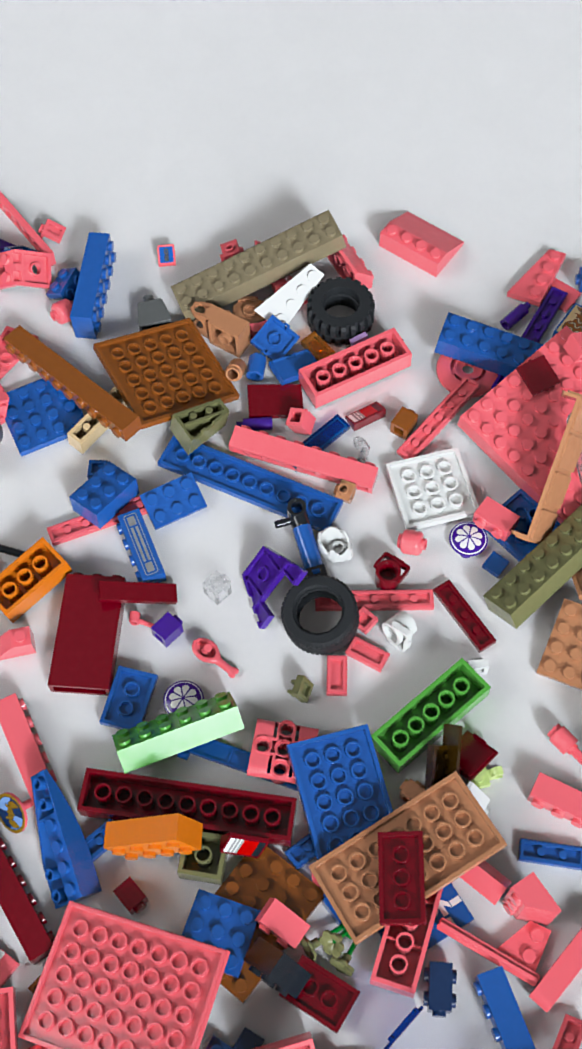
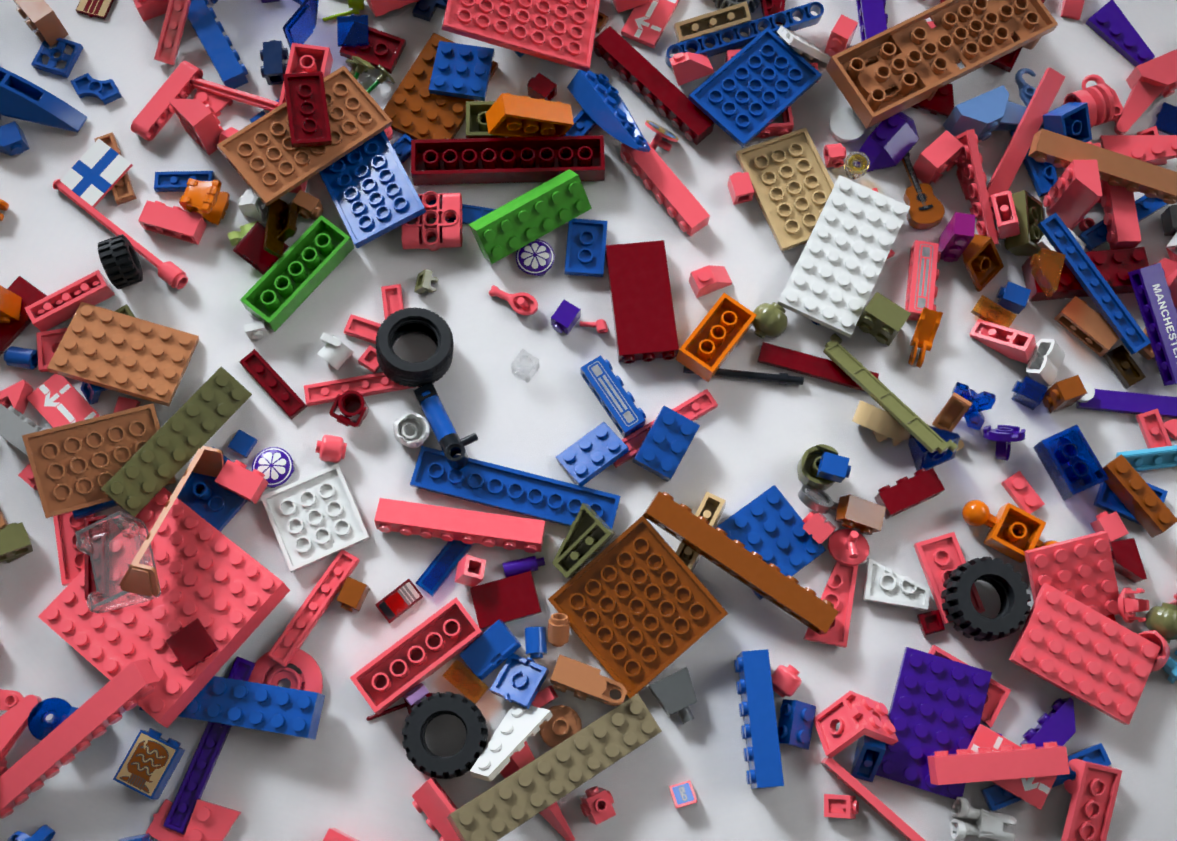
camera: 165 degrees right, 10 degrees up
(94, 466) = (684, 482): blue tile -> none
(137, 592) = (602, 342): dark red tile -> none
(243, 844) = (453, 131): slope -> none
(264, 575) = (475, 381): dark purple wing -> none
(276, 968) = (407, 46): black brick -> none
(282, 923) = (408, 79): coral brick -> none
(340, 1017) = (352, 30): none -> clear blue piece
(345, 491) = (410, 492): nougat plate -> none
(363, 448) = (397, 557): clear arm -> none
(515, 316) = (228, 776): dark purple cylinder -> none
(527, 815) = (205, 199): none -> orange piece

